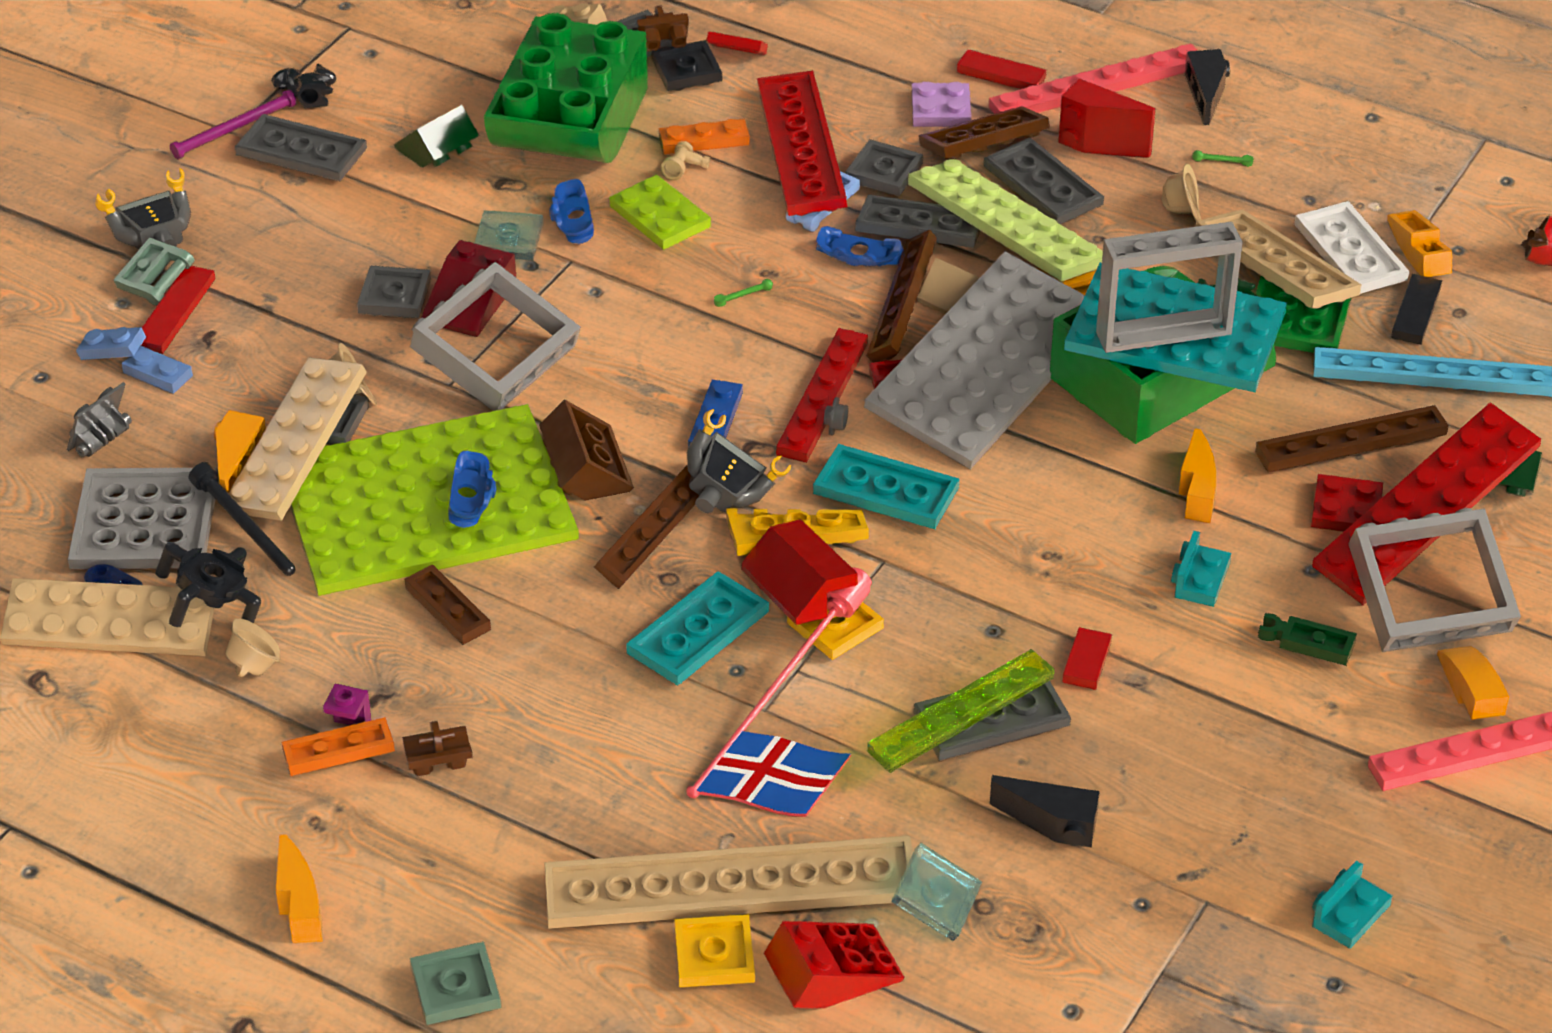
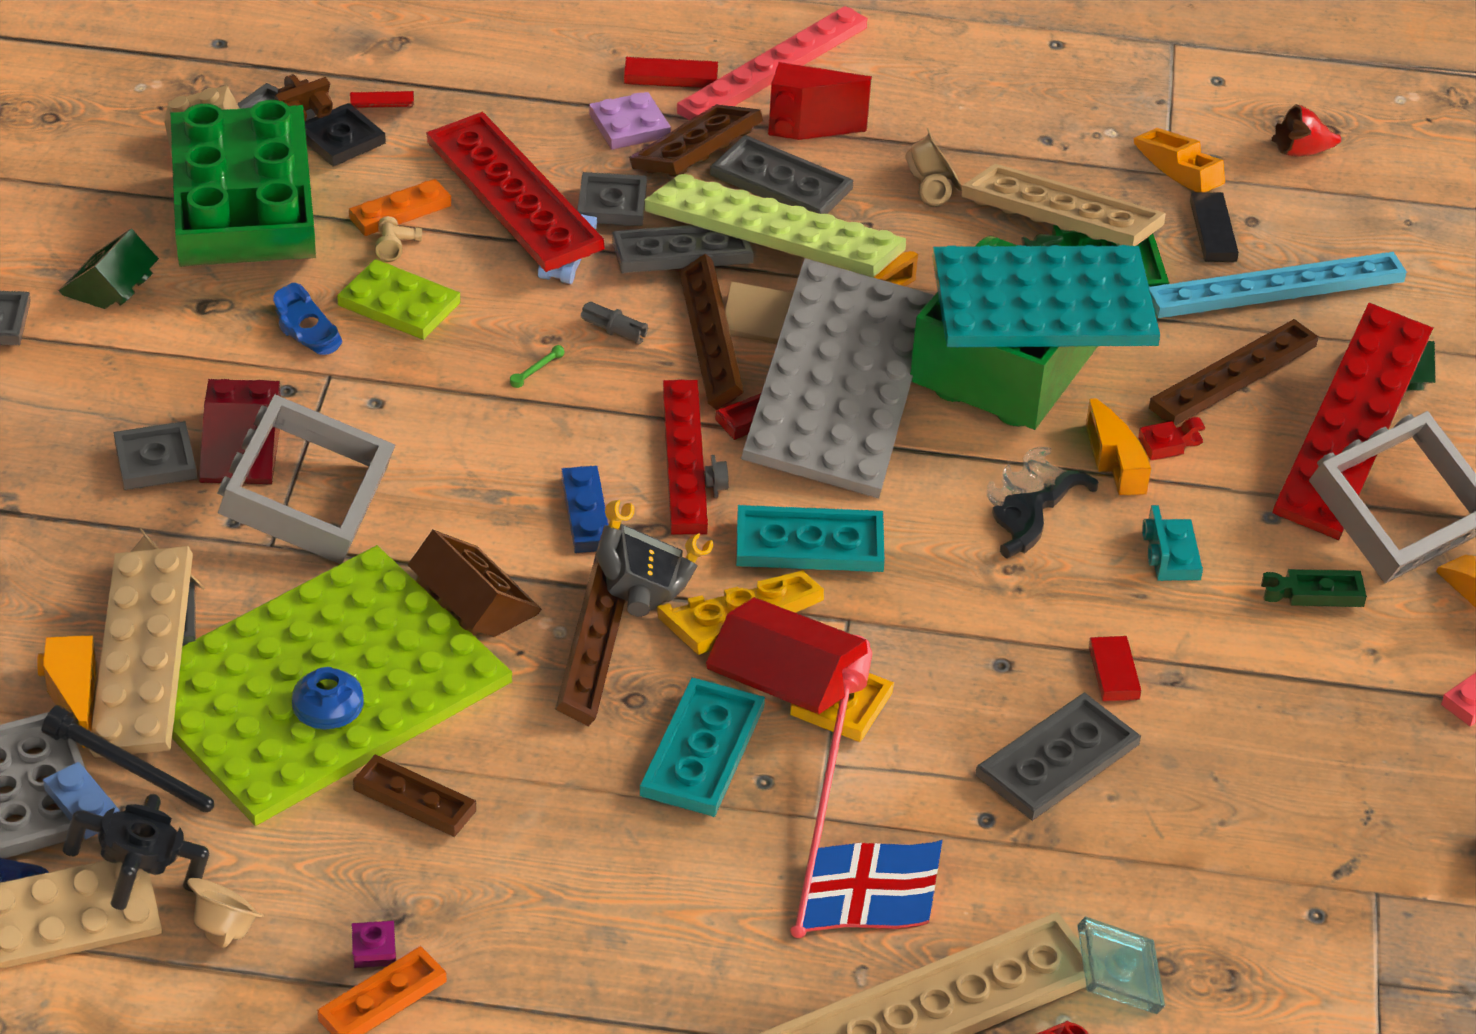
camera: 25 degrees left, 0 degrees up
(190, 530) = (76, 790): none -> medium blue plate
(420, 517) = (327, 707): none -> blue piece
(436, 748) = (500, 964): reddish brown hips -> none
(470, 472) = (367, 637): blue piece -> none
(510, 232) = (249, 358): clear light blue plate -> none
(826, 270) = (614, 322): none -> dark grey axle
(839, 245) = (657, 290): blue piece -> none
(960, 710) = (1035, 761): clear neon green plate -> none
(1053, 810) = (1179, 841): black slope -> none
(1100, 495) = (1027, 493): none -> black piece
(1161, 248) = (1097, 196): light grey window -> none
(1172, 218) = (935, 190): none -> tan tile
(1206, 79) = (882, 38): black slope -> none
(1246, 160) = (964, 113): bright green hinge -> none
(1254, 481) = (1166, 440): none -> red plate
(1342, 501) = (1264, 439): red plate -> none
(1351, 246) = (1114, 173): white plate -> none

